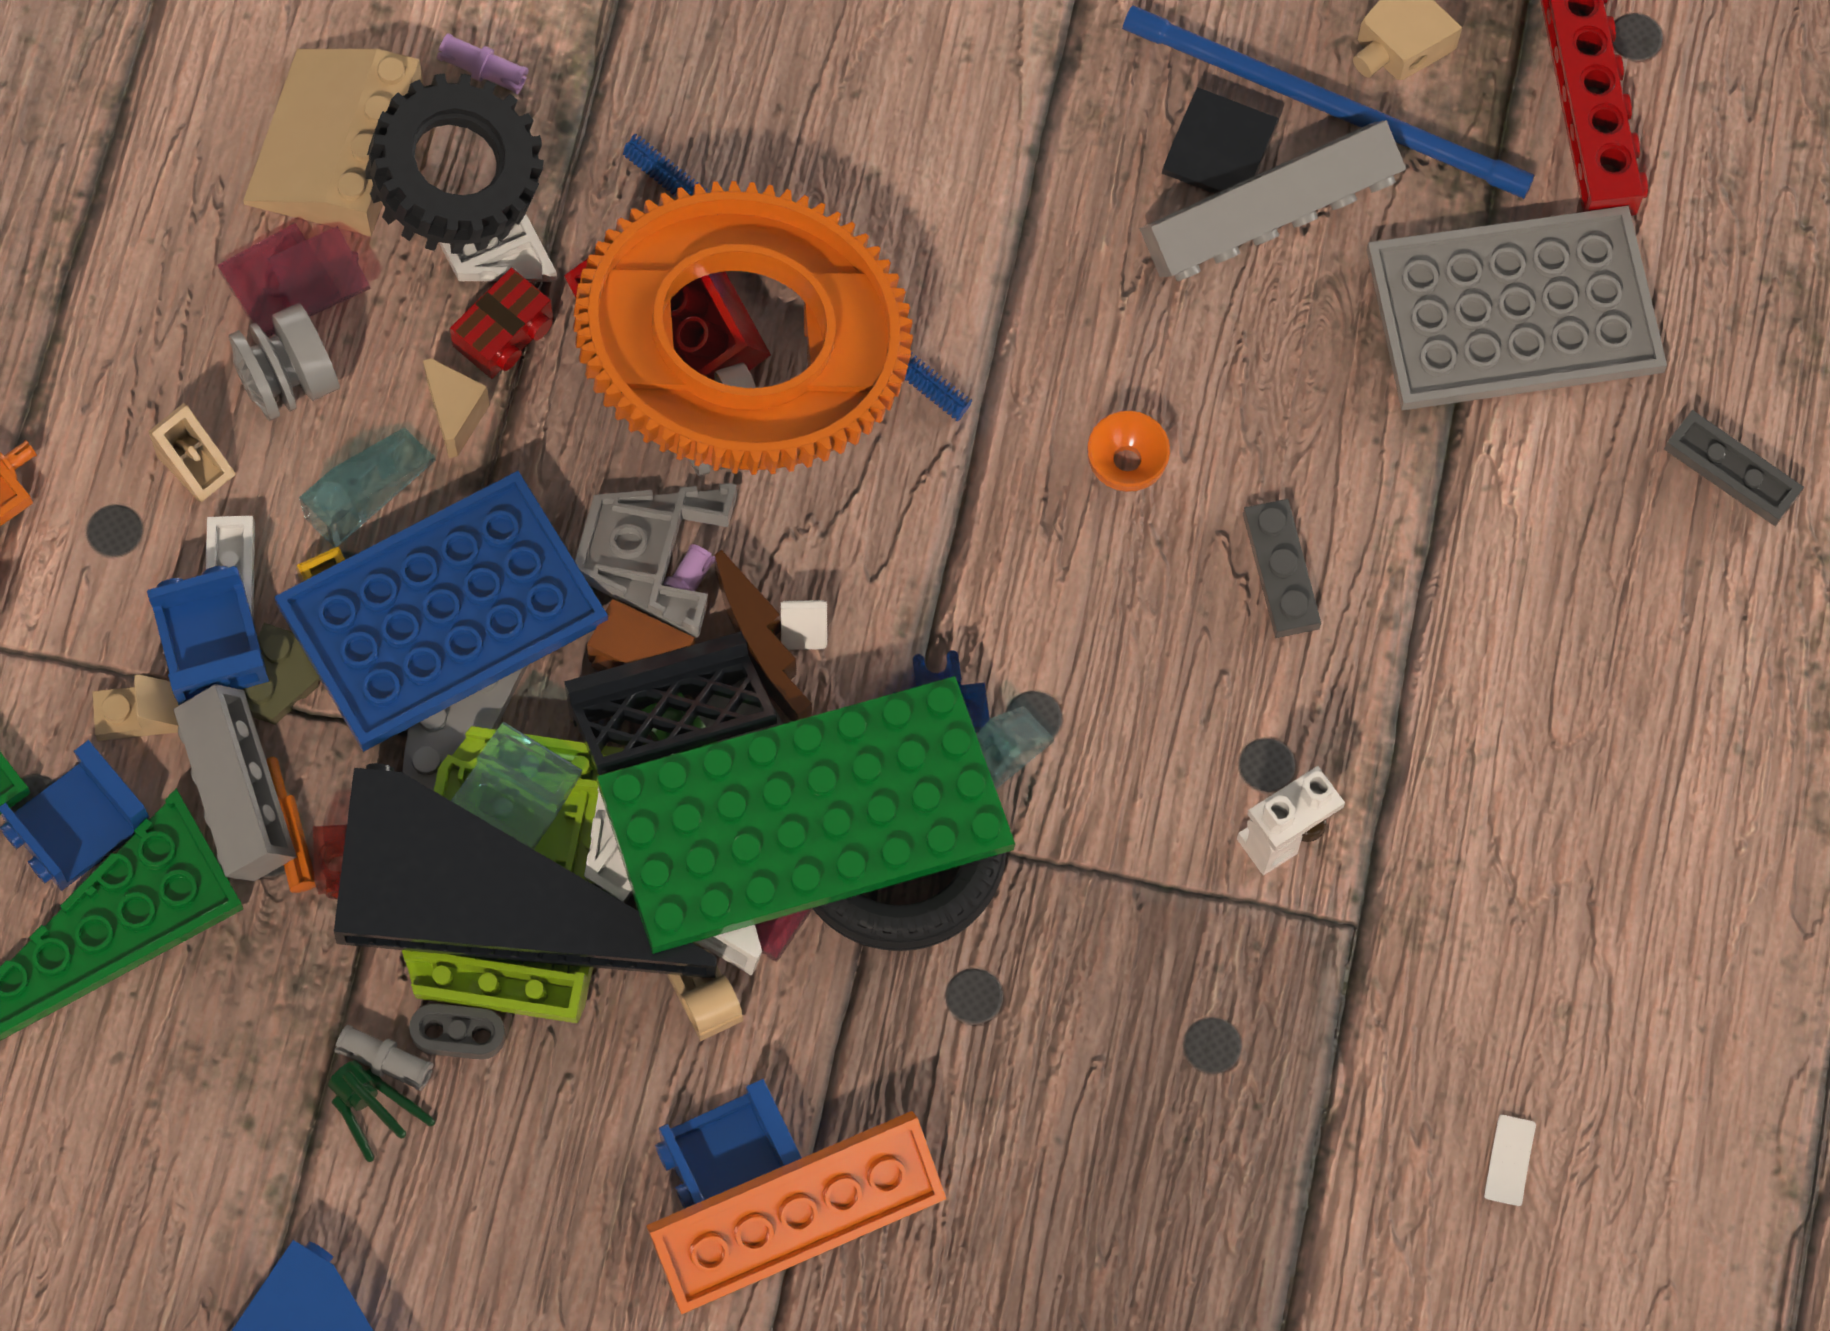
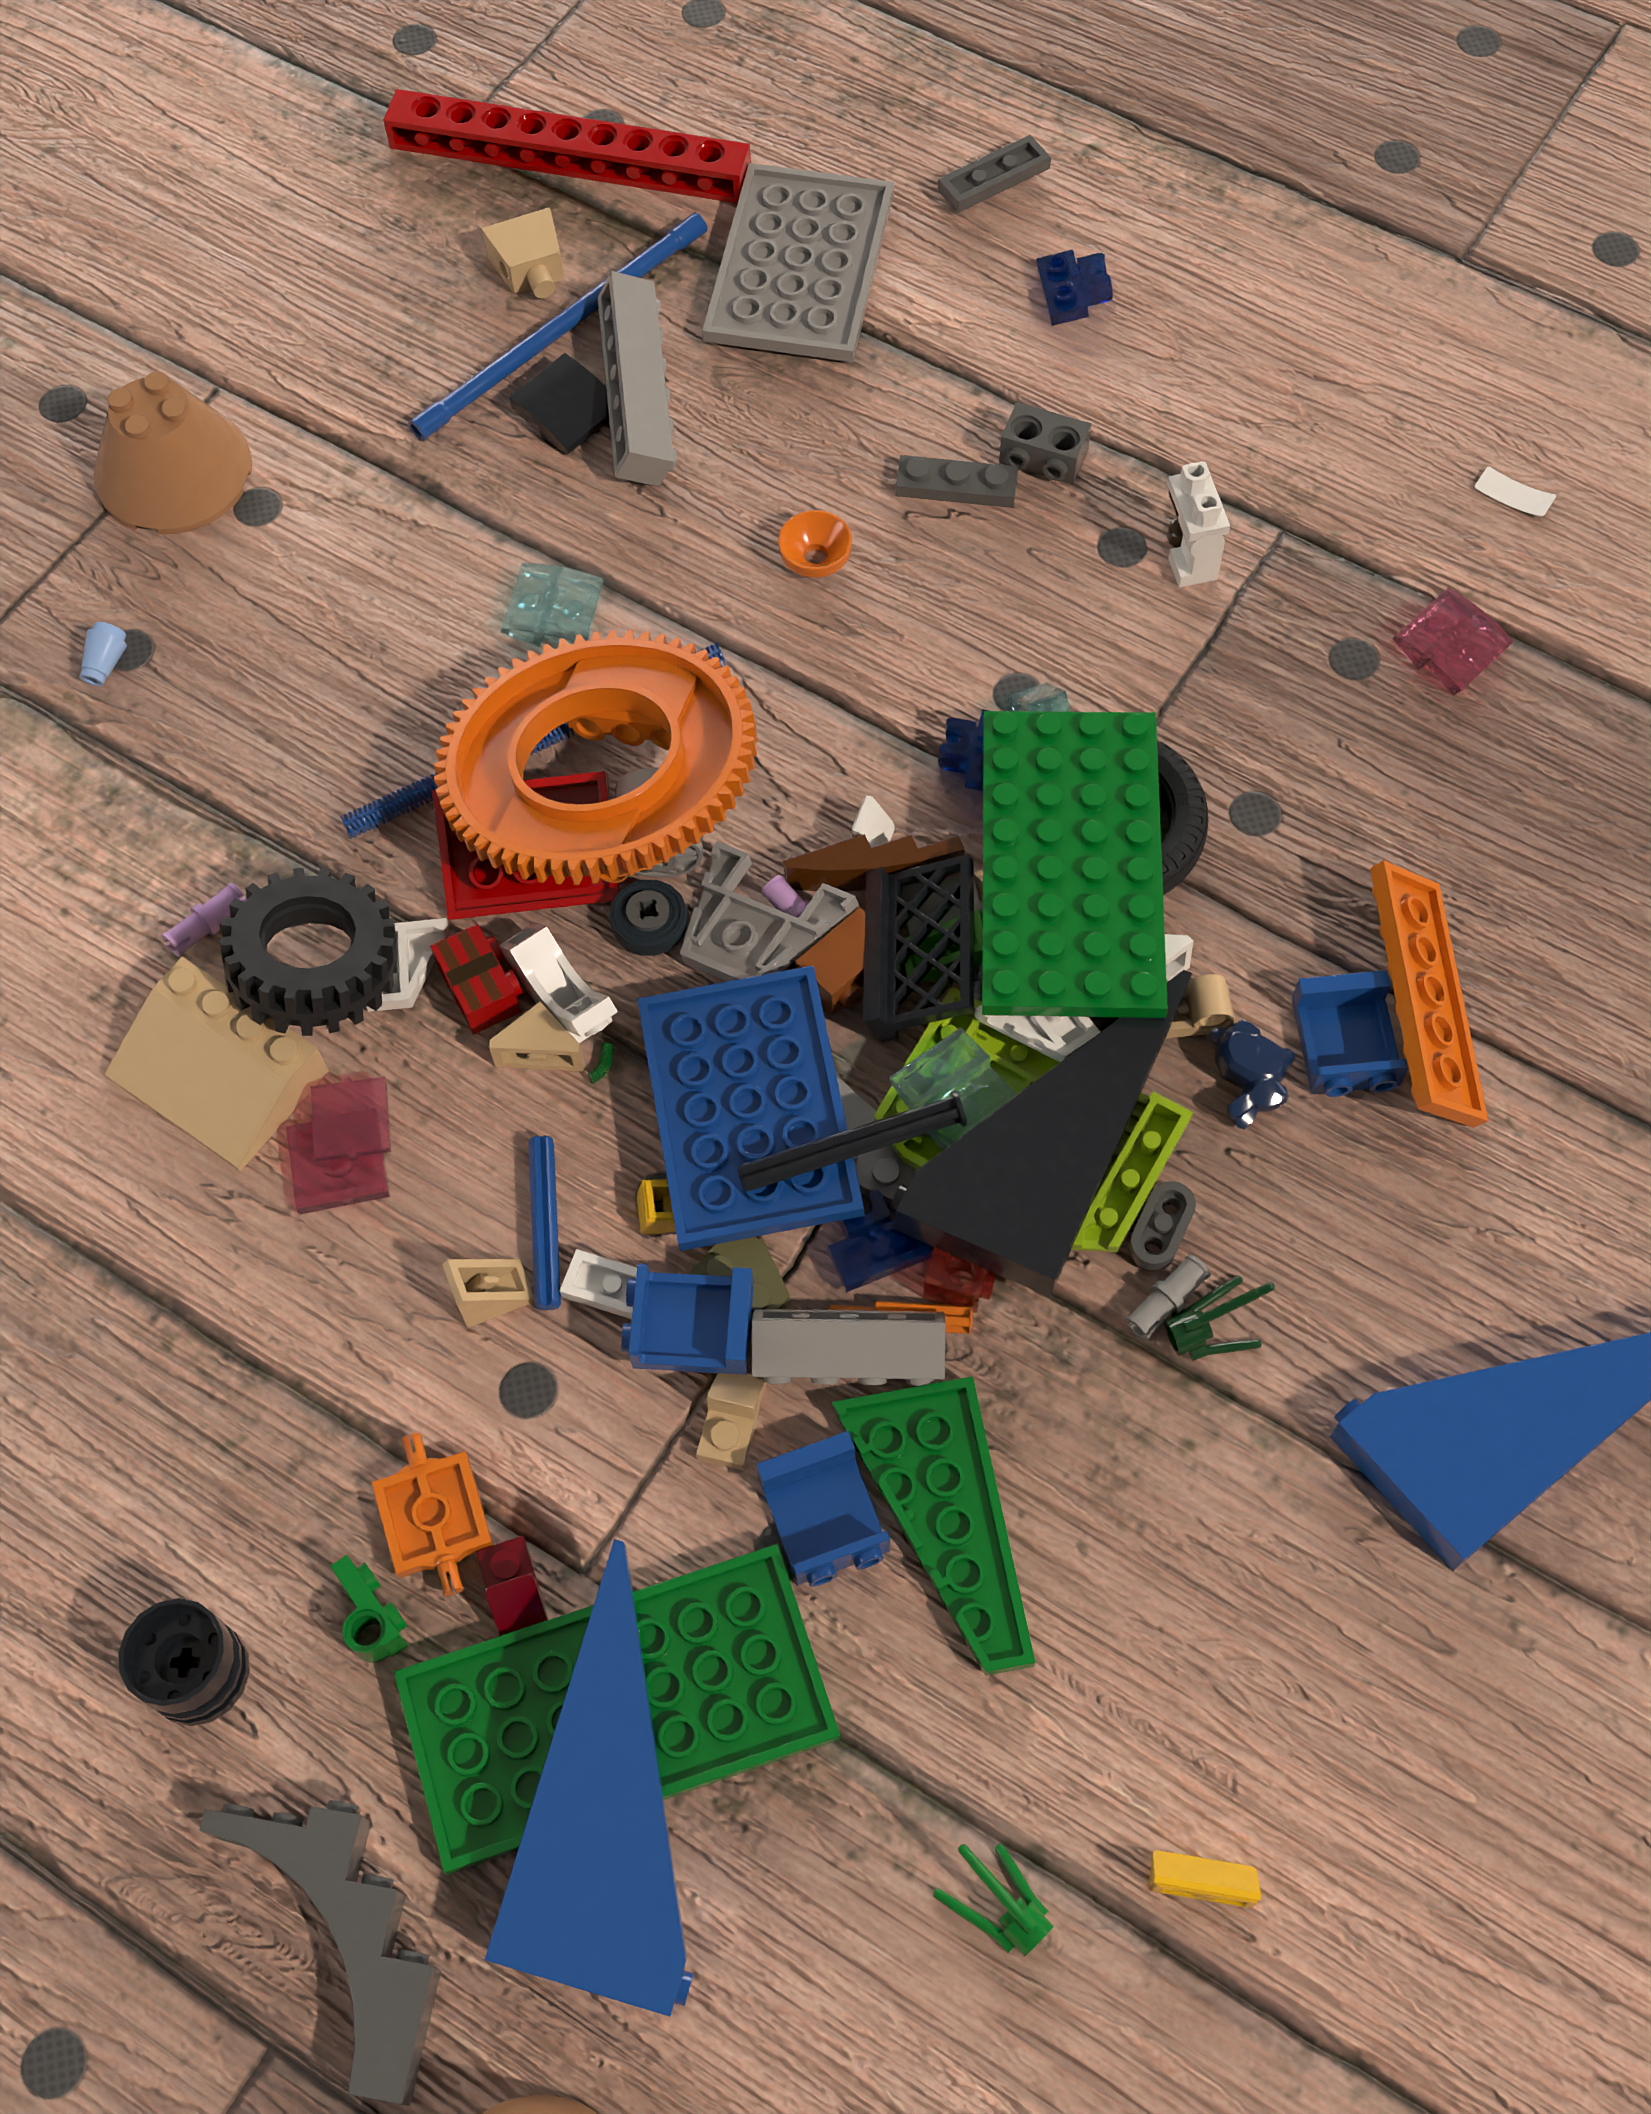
camera: 65 degrees left, 5 degrees down
(275, 480) = (544, 1223): none -> blue axle
(283, 362) = (434, 1167): light grey wheel -> none
(331, 769) = (874, 1247): none -> clear blue plate
(363, 485) = (586, 1146): clear light blue slope -> none
(422, 712) = (852, 1142): none -> black axle
(463, 471) = (601, 1067): none -> green leg
(517, 398) = (555, 983): none -> white arch
(626, 469) = (650, 933): none -> black wheel
(660, 1068) = (1254, 1066): none -> dark blue animal
(958, 230) = (551, 604): none -> clear light blue slope
(1267, 1138) = (1453, 640): none -> clear pink slope
(1367, 640) = (1045, 443): none -> dark grey brick
(1605, 599) = (1072, 286): none -> clear blue plate

